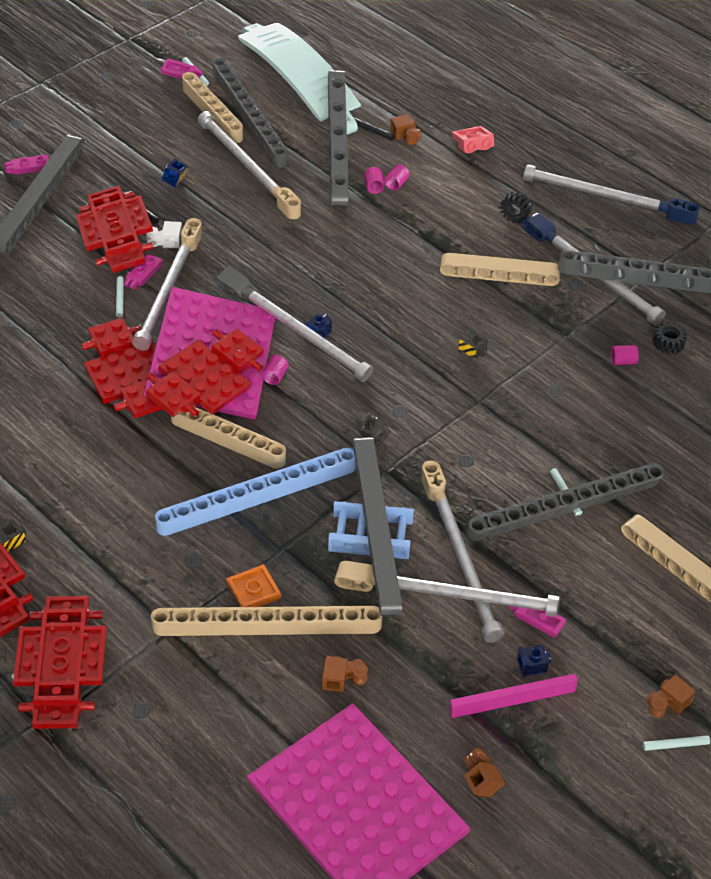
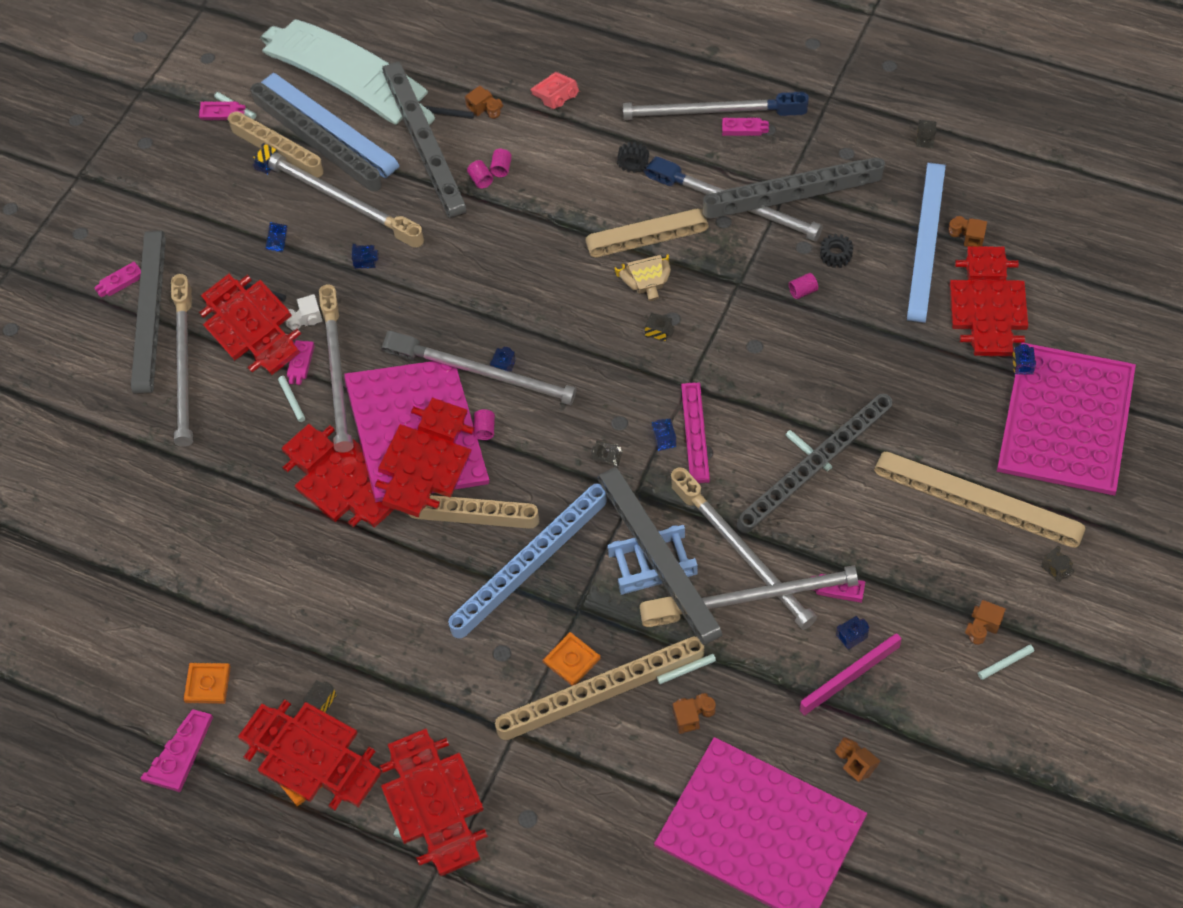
camera: 15 degrees left, 10 degrees up
(71, 192) = (182, 298): none -> flat silver piece
(194, 112) = (262, 158): none -> brick
(241, 210) = (364, 256): none -> clear blue brick
(292, 141) = (337, 128): none -> light blue beam
(341, 635) = (686, 668): none -> light aqua bar
(434, 431) = (664, 434): none -> clear blue brick
(465, 441) = (695, 432): none -> dark pink tile
(482, 300) = (646, 275): none -> tan torso
(630, 217) = (744, 127): none -> dark pink hinge

